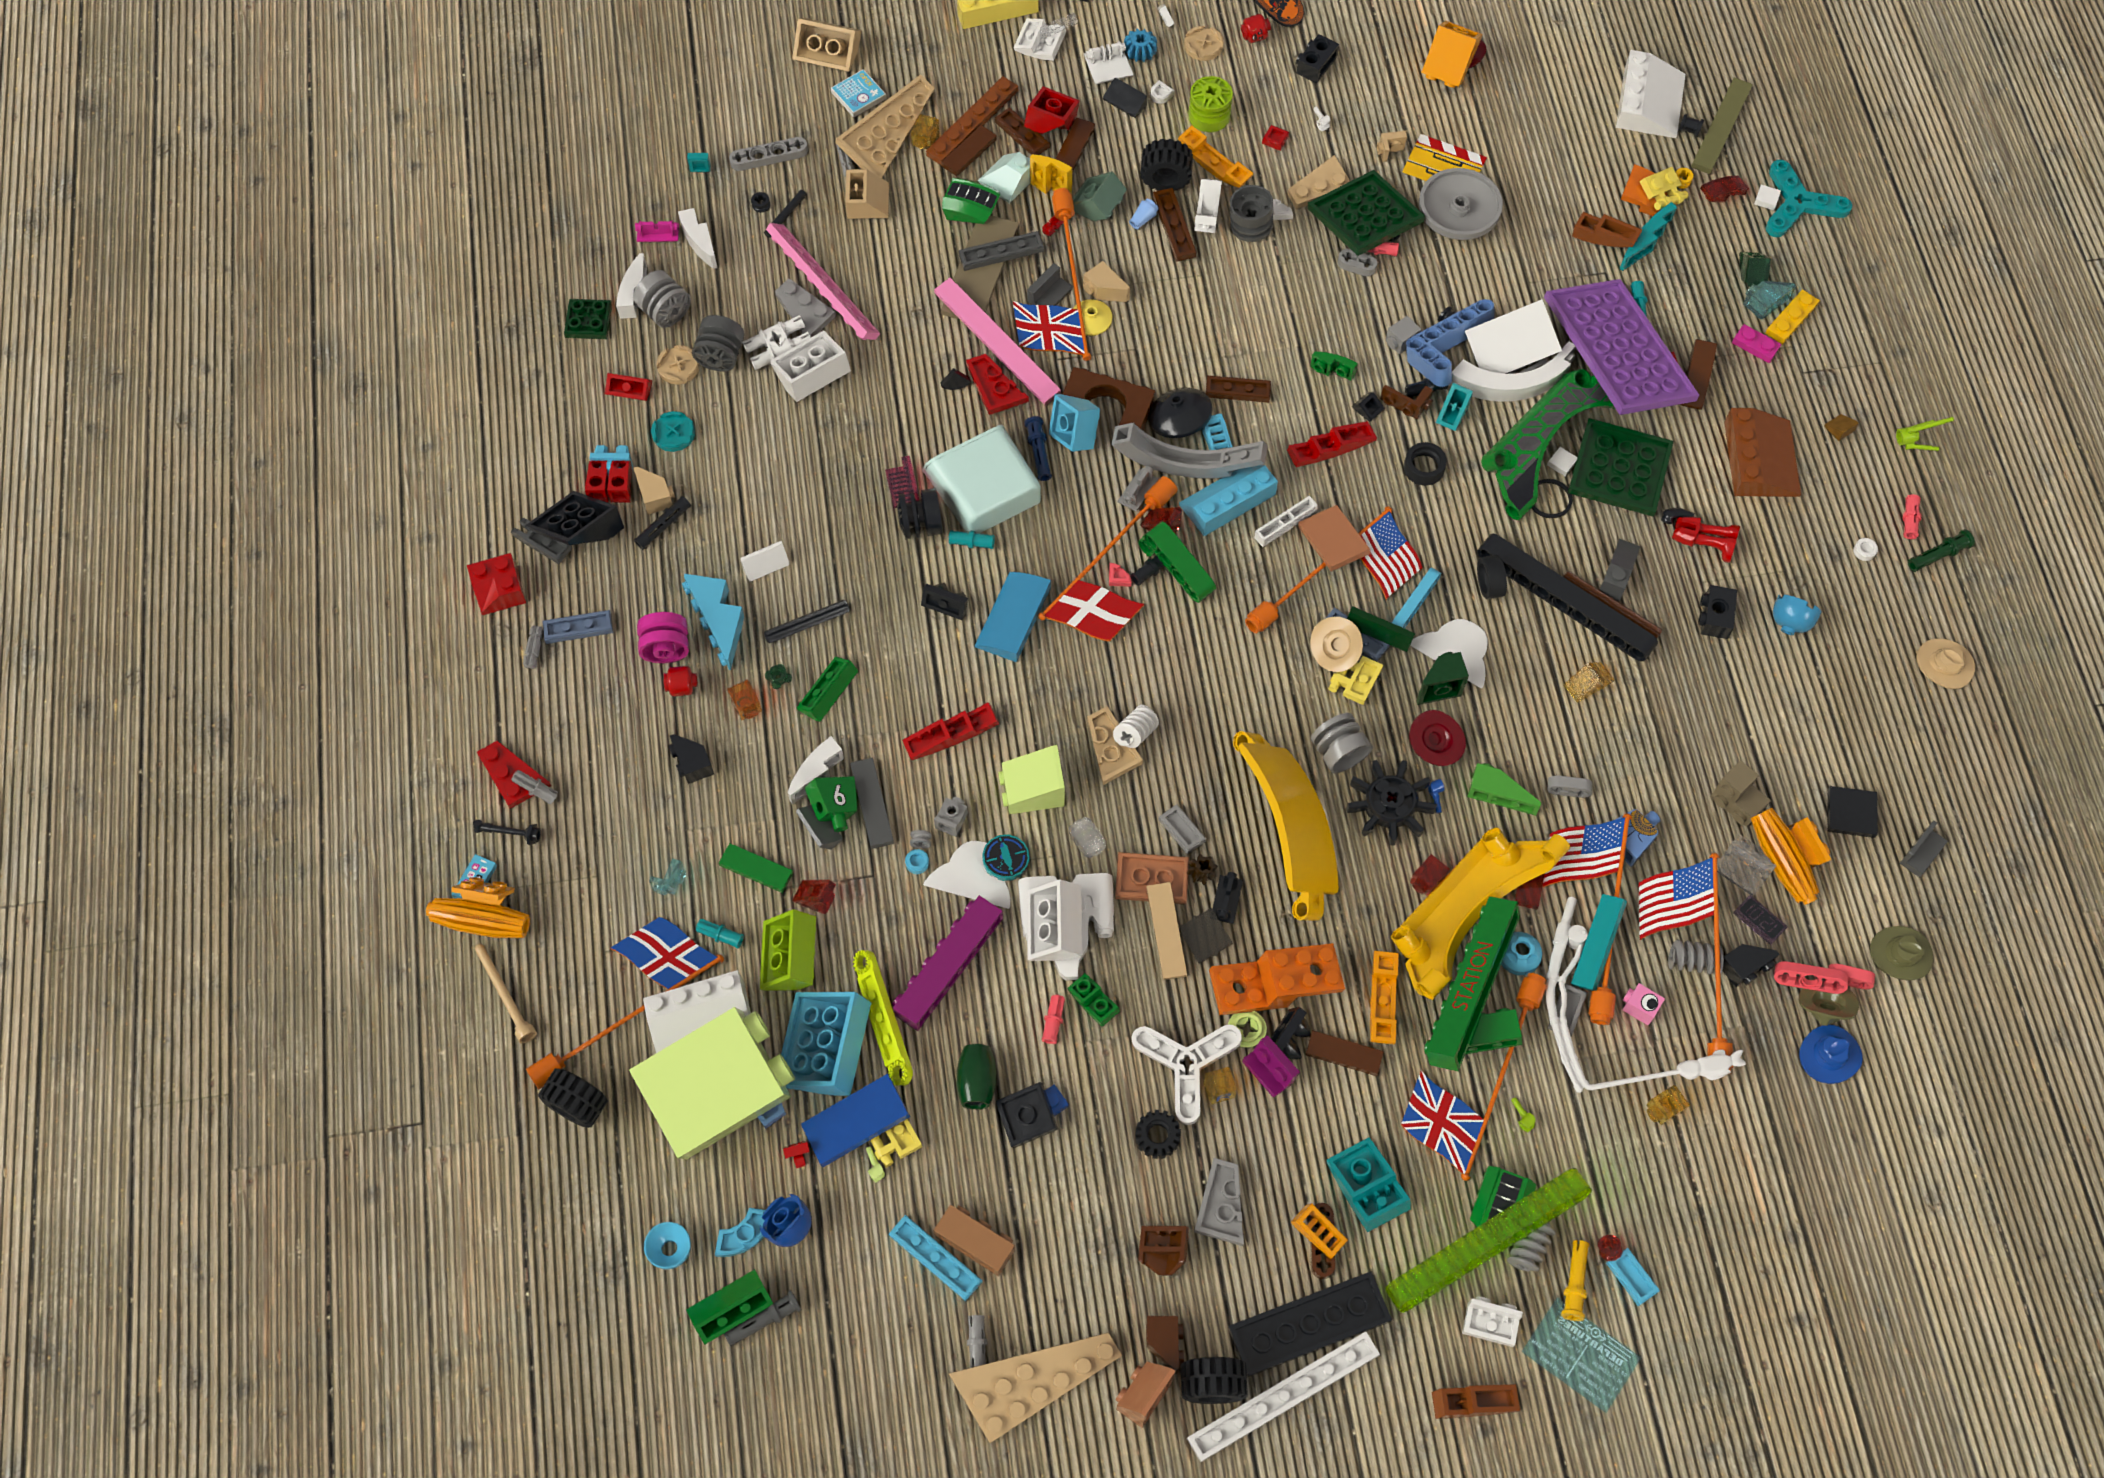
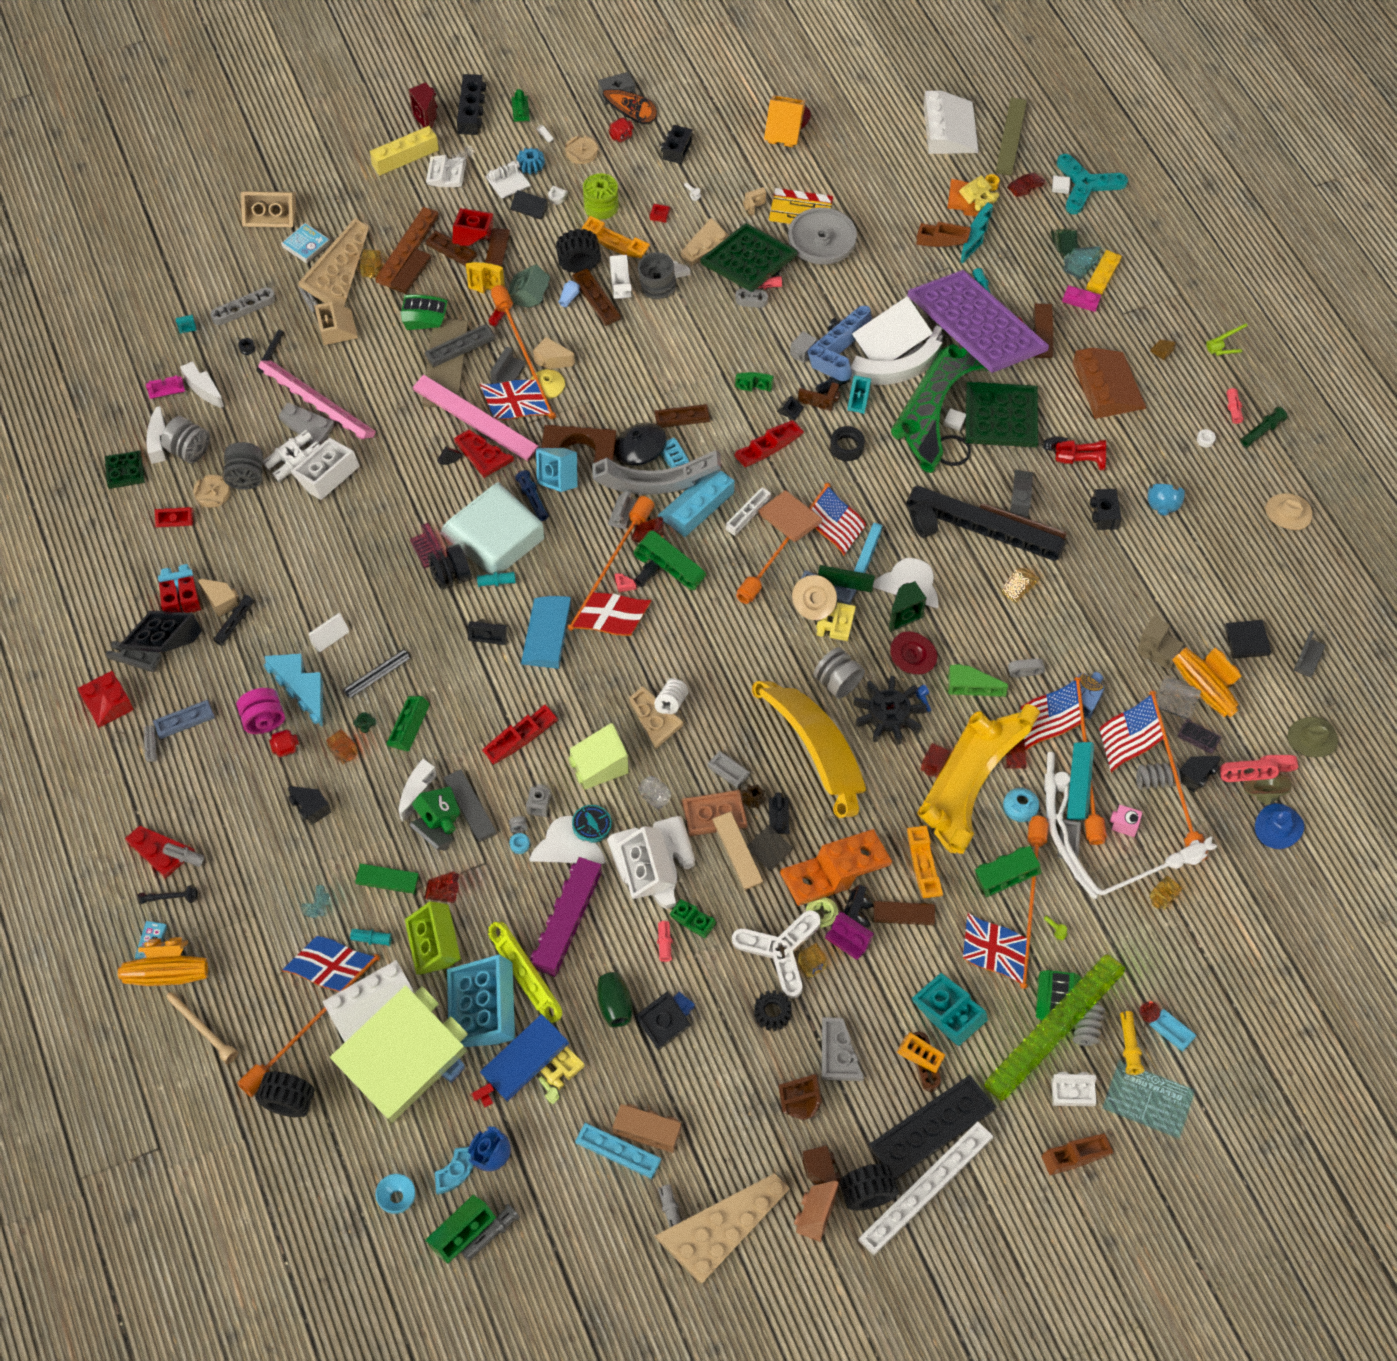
camera: 15 degrees left, 5 degrees down
(673, 431) = (222, 545): teal tile -> none
(1008, 175) = (449, 284): light aqua slope -> none
(1472, 984) = (991, 834): green brick -> none
(1691, 125) = (987, 140): black bush -> none

